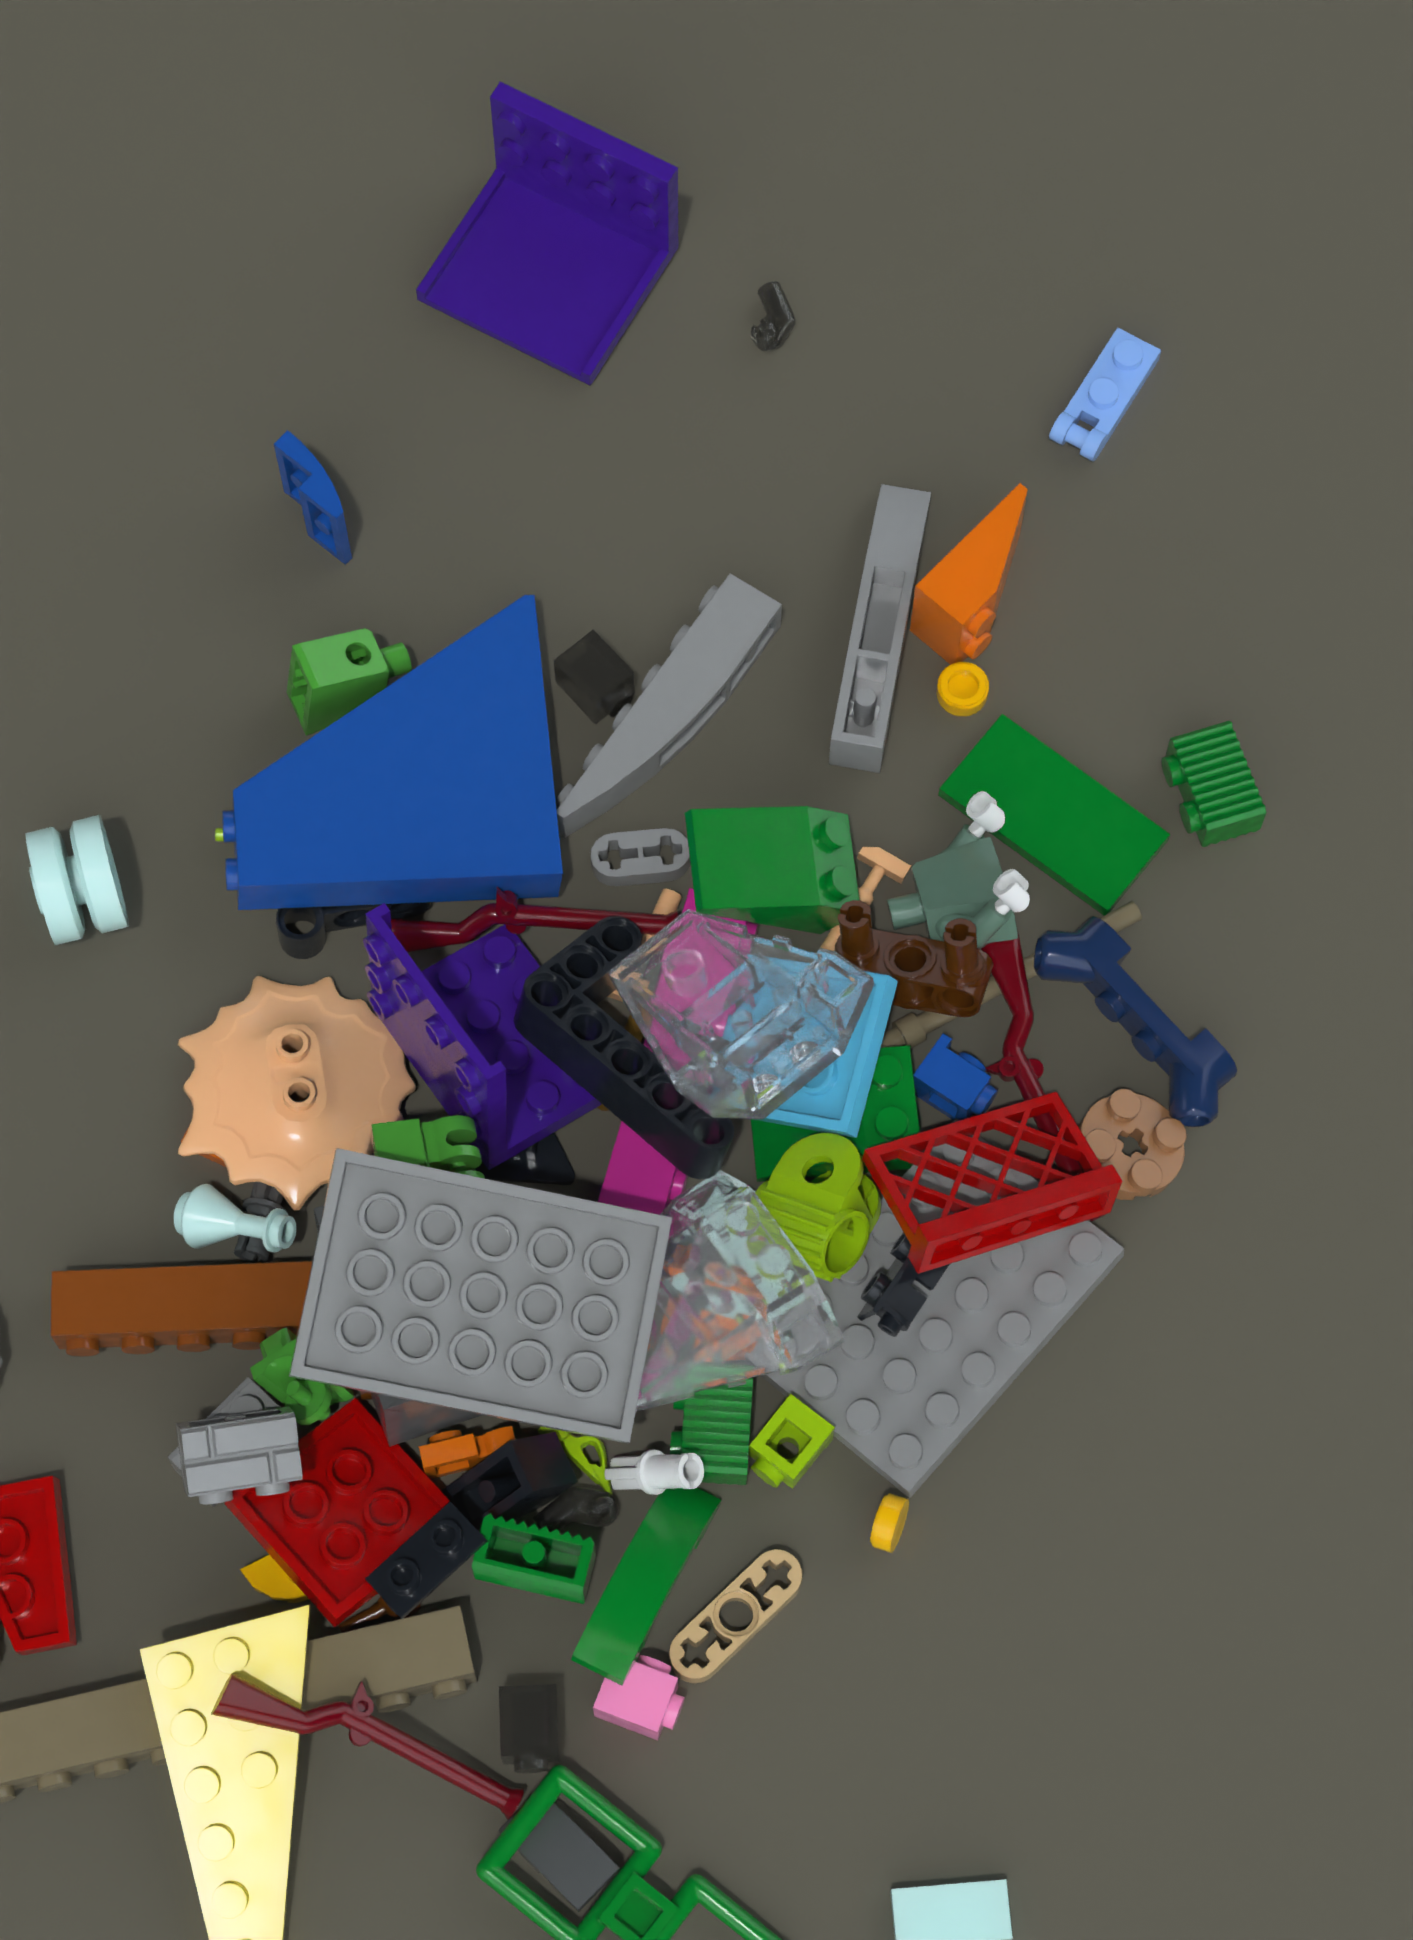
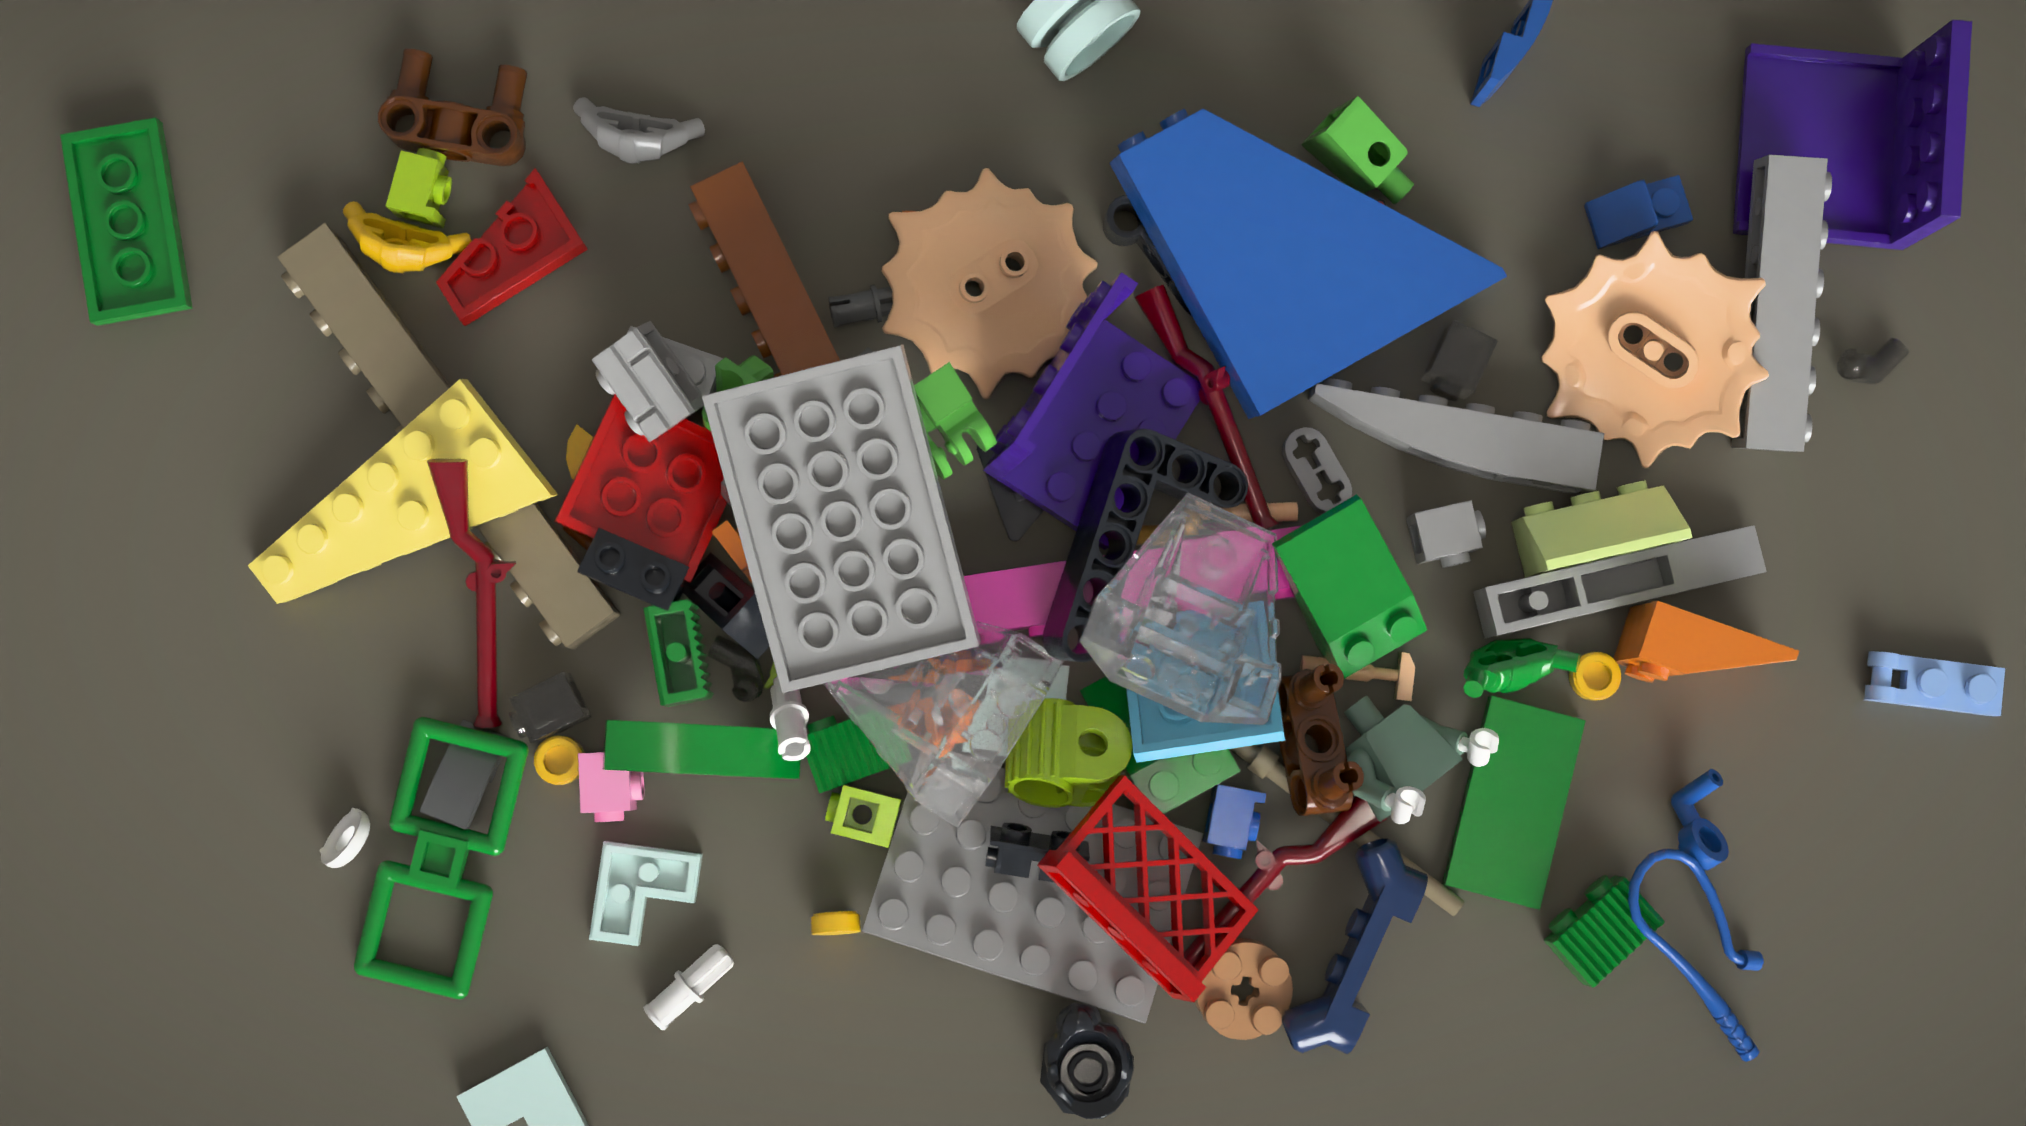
camera: 55 degrees right, 15 degrees up
(210, 1217) = (846, 264): light aqua piece -> none
(527, 458) = (1638, 211): none -> blue slope
(589, 1744) = (558, 760): none -> yellow tile
(641, 458) = (1625, 385): none -> light nougat piece
(680, 368) = (1784, 251): none -> light grey brick
(696, 1635) = (671, 828): tan beam -> none
(747, 1721) = (631, 875): none -> light aqua tile
(760, 762) = (1446, 533): none -> light grey brick
(819, 620) = (1597, 528): none -> yellowish green slope
(890, 1706) = (689, 986): none -> white axle
(919, 752) = (1513, 665): none -> green piece
(1142, 1328) = (1086, 1063): none -> black piece
(1163, 660) = (1699, 836): none -> blue plate
(1296, 672) = (1743, 958): none -> blue piece

